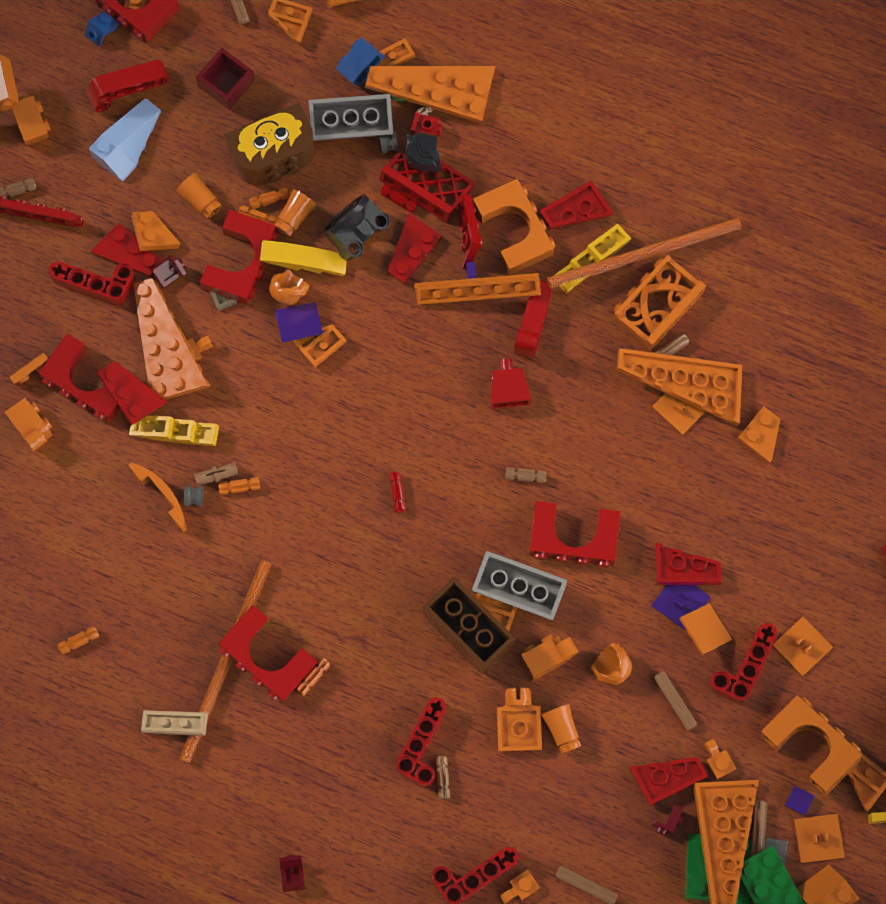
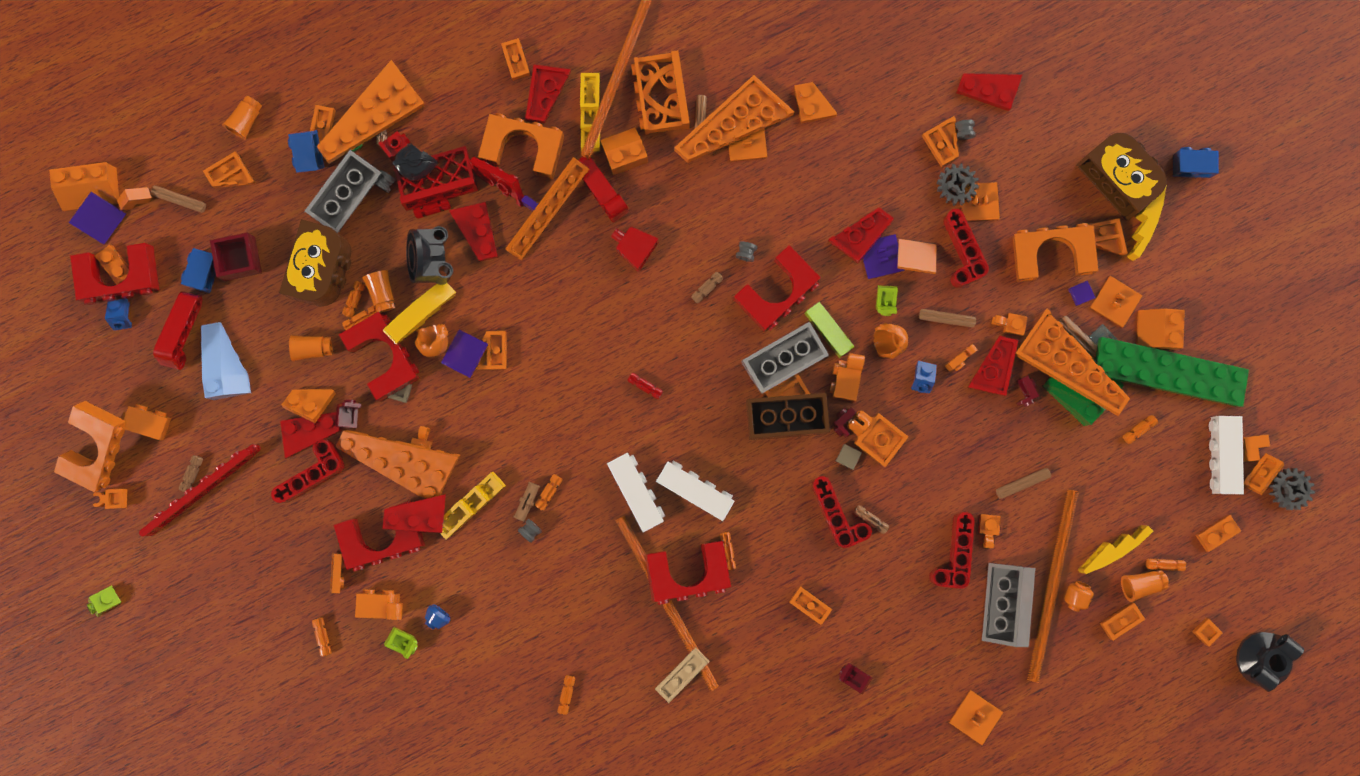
camera: 45 degrees left, 10 degrees up
(13, 468) = (401, 642): none -> lime bracket
(57, 479) = (436, 617): none -> blue cone
(144, 476) = (486, 553): orange slope -> none
(189, 60) = (199, 271): none -> blue brick
(299, 557) = (635, 492): none -> white brick
(324, 784) = (810, 605): none -> orange plate
(341, 606) = (695, 491): none -> white brick
(481, 713) = (848, 456): none -> dark tan tile
(511, 680) = (843, 416): none -> dark red bracket
(562, 728) = (905, 410): orange plant -> none
(578, 607) = (829, 329): none -> lime slope
(582, 312) = (624, 151): none -> orange slope
(583, 163) = (515, 59): none -> orange plate
(584, 482) = (746, 251): none -> dark grey wheel
(606, 722) = (924, 377): none -> blue bracket
(644, 739) = (957, 362): none -> orange plate
(645, 634) = (886, 300): none -> lime bracket
(805, 618) = (956, 176): none -> dark grey gear
(826, 571) = (943, 141): none -> orange wing
(853, 581) = (965, 129): none -> dark grey wheel

